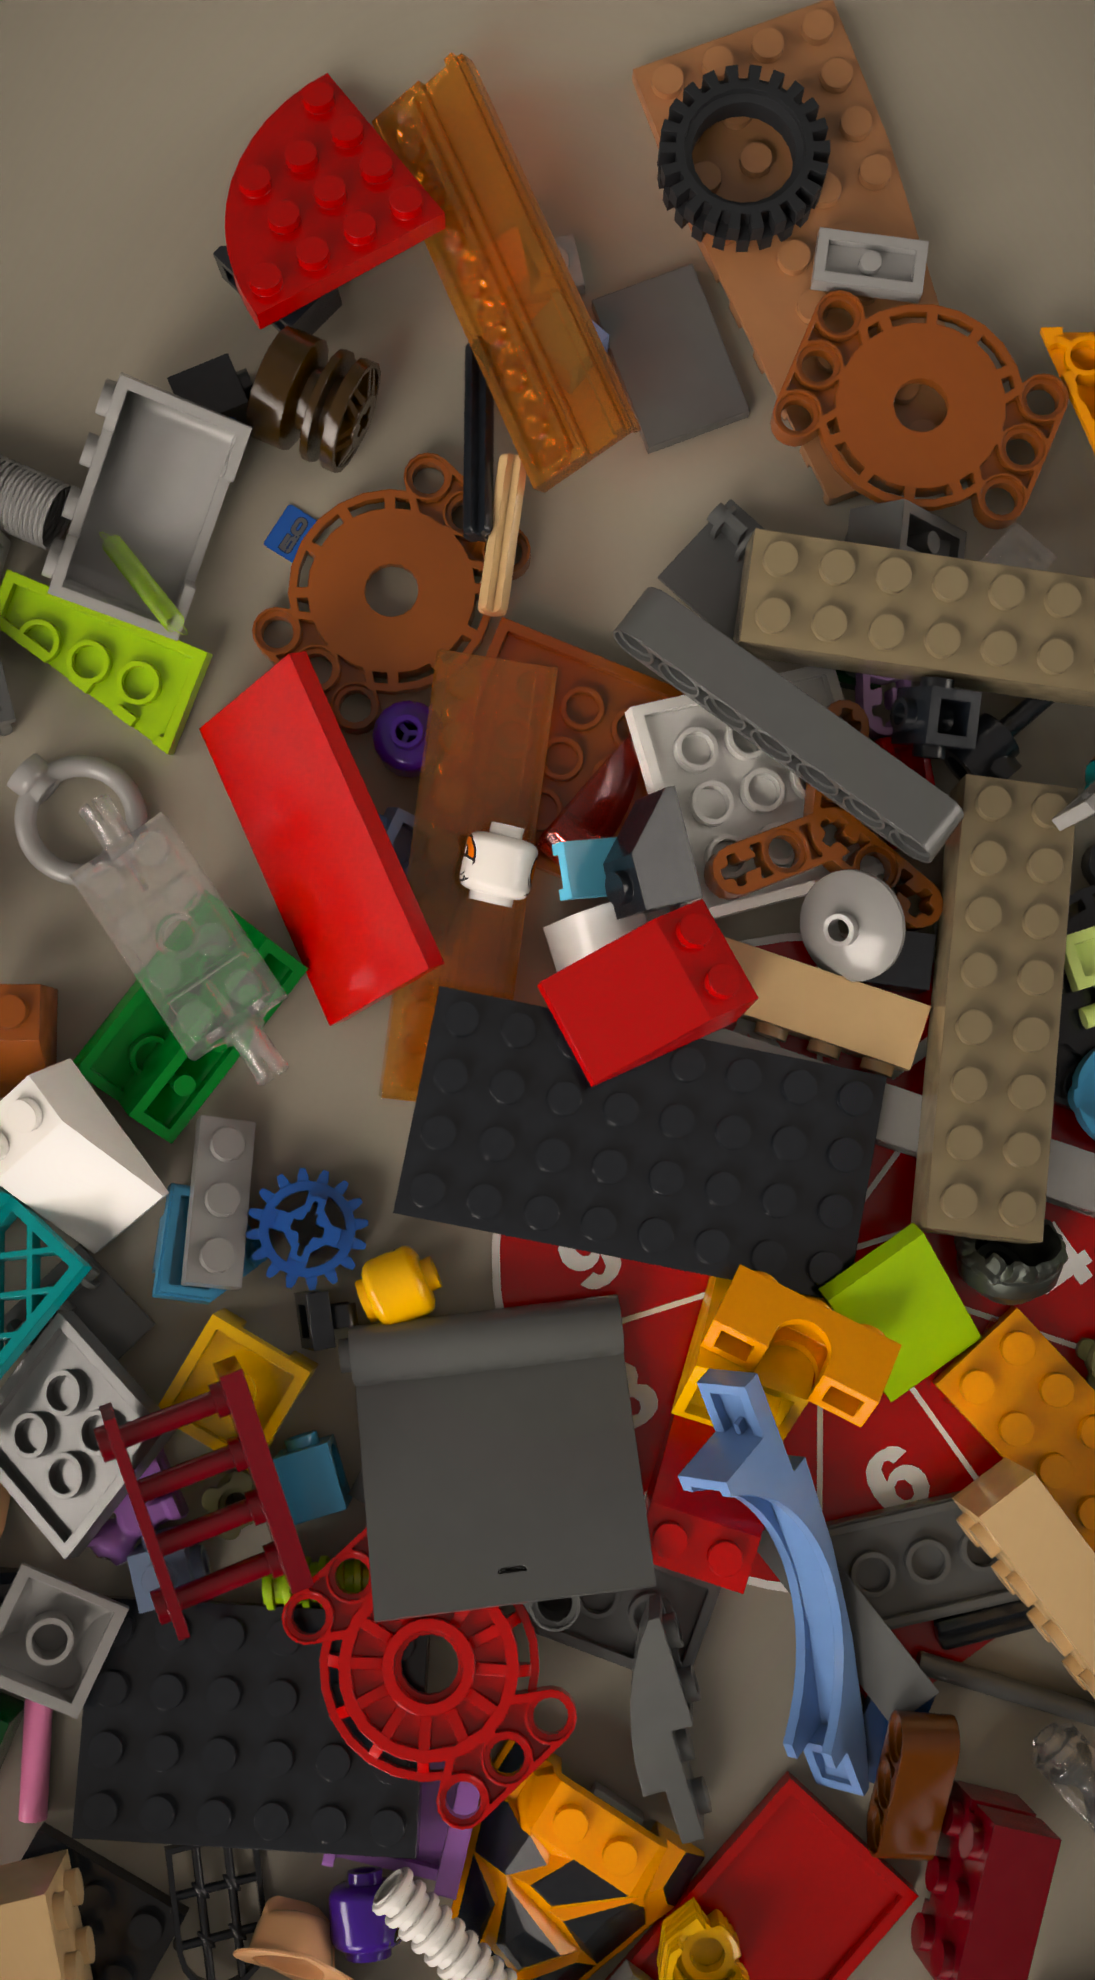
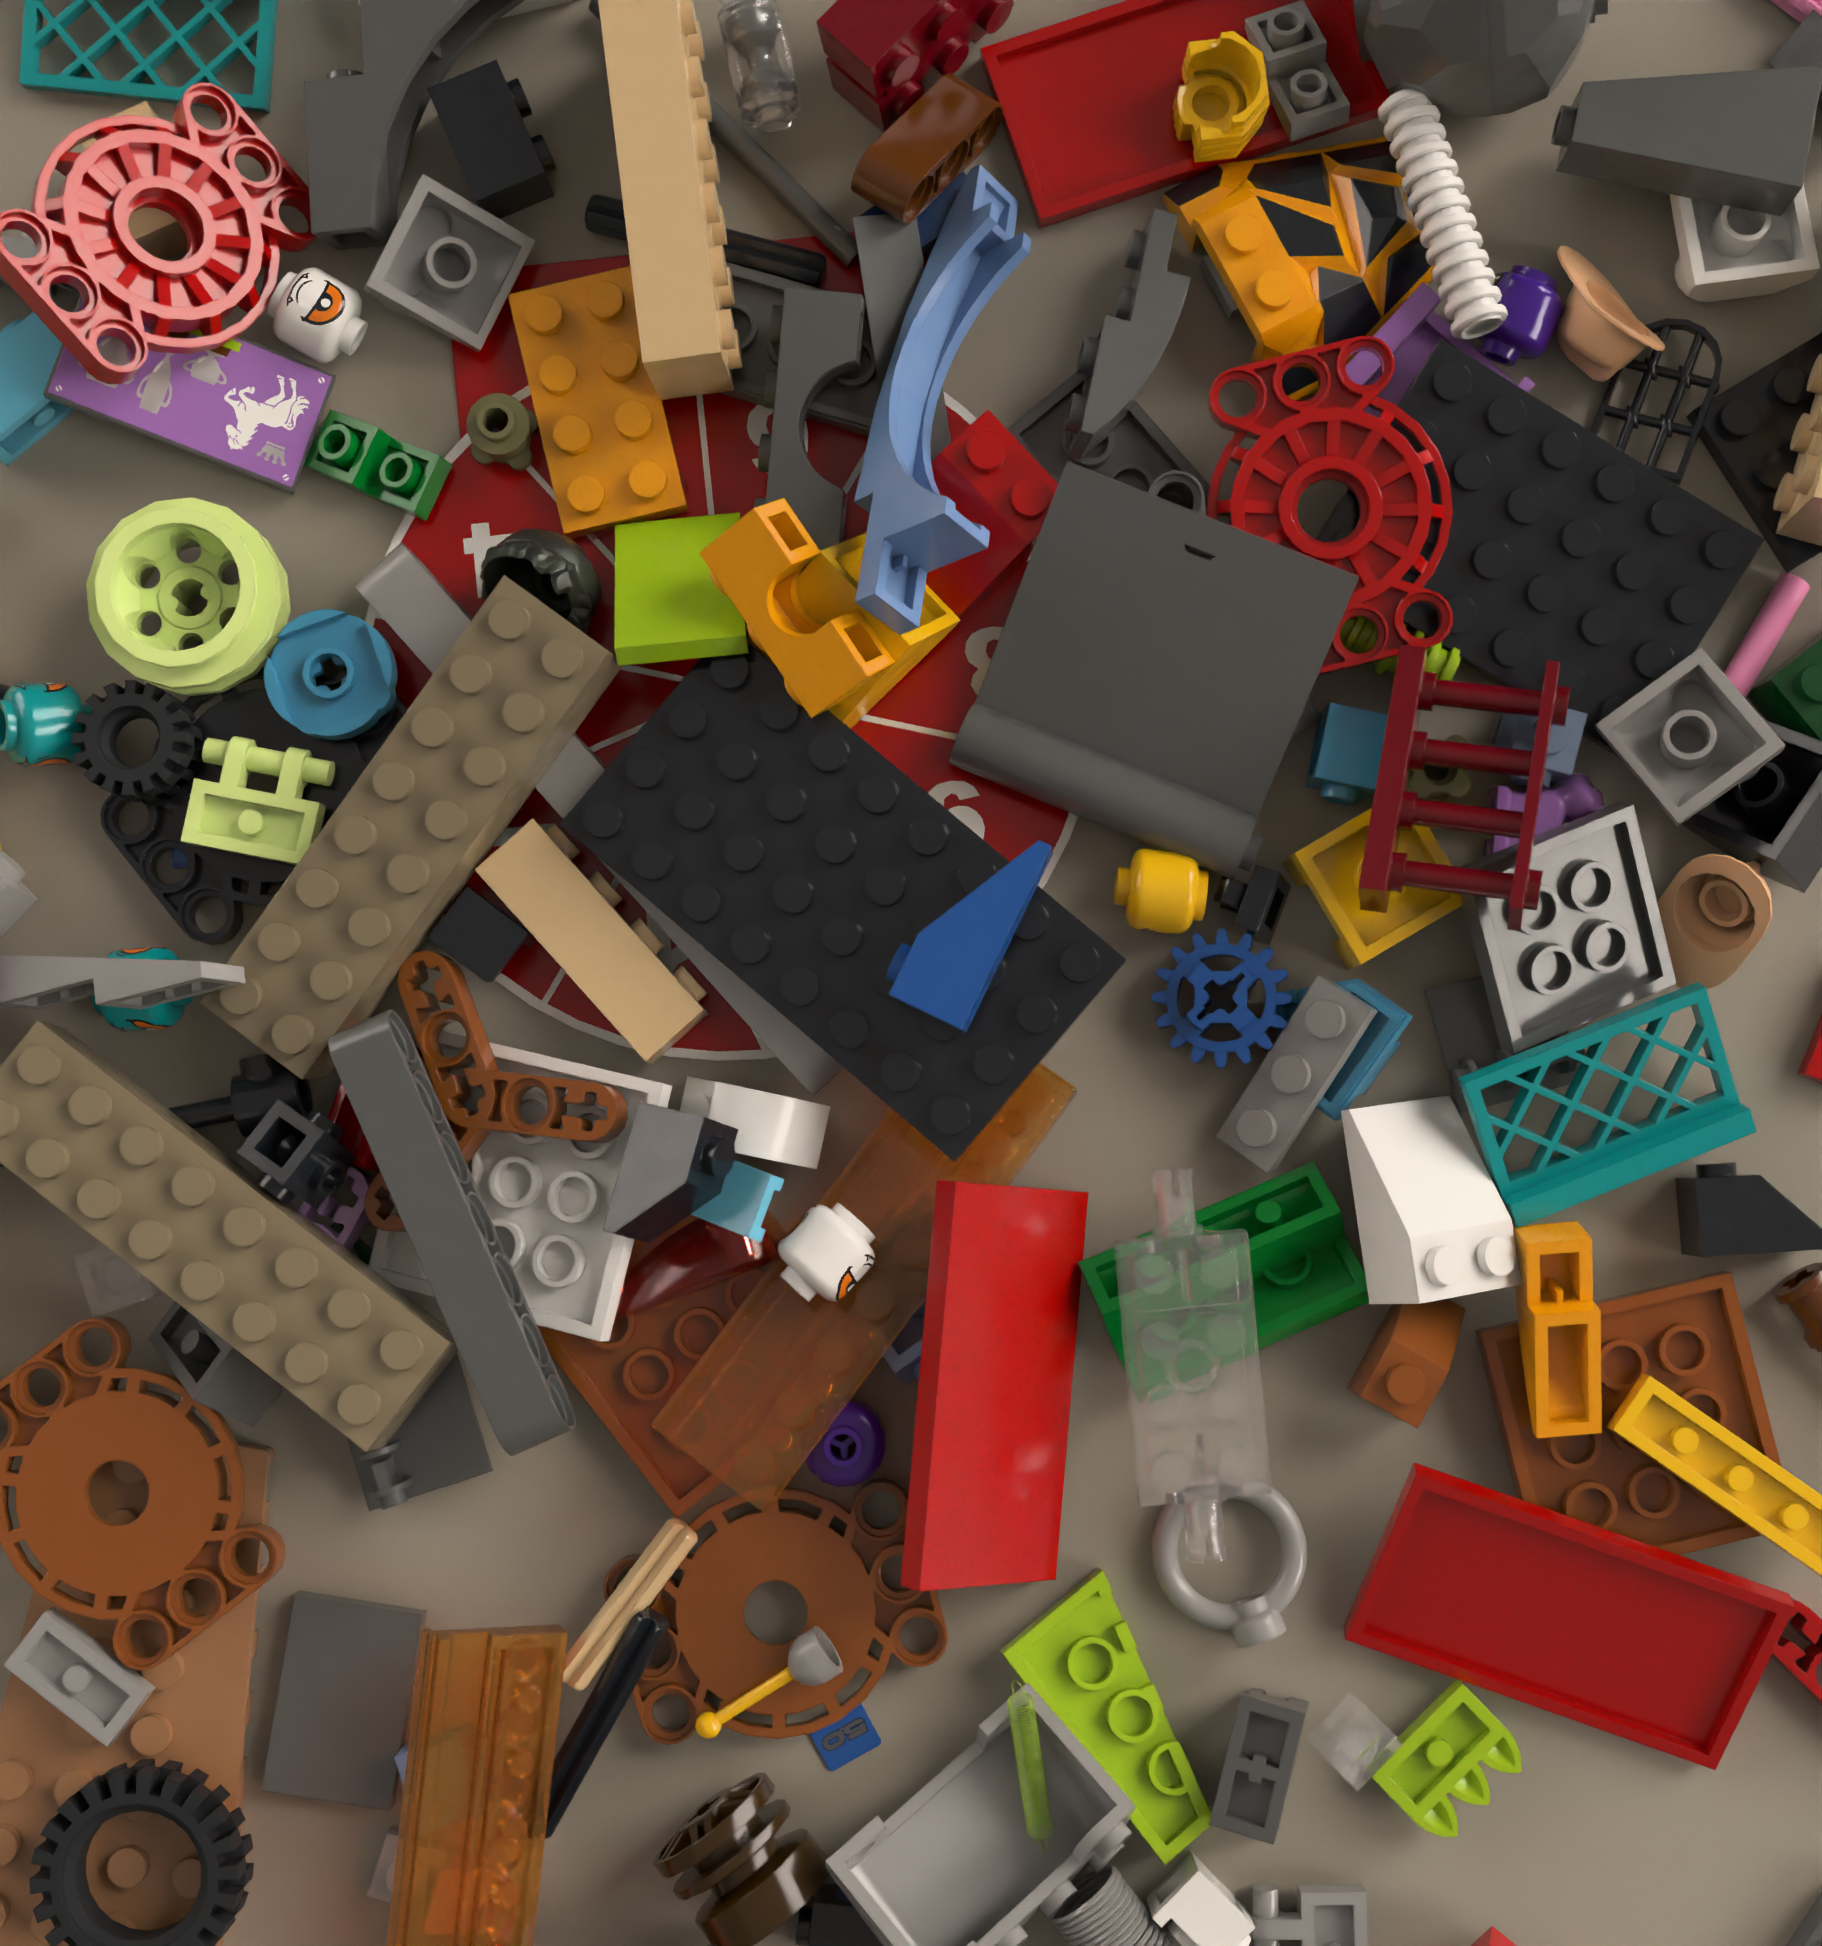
camera: 155 degrees left, 0 degrees up
(344, 567) = (810, 1662): none -> hinge
(522, 1142) = (961, 950): none -> blue slope
(648, 993) = (749, 1035): red slope -> none
(873, 922) = (481, 990): light grey dish -> none
(907, 1571) = (818, 343): none -> dark grey arch

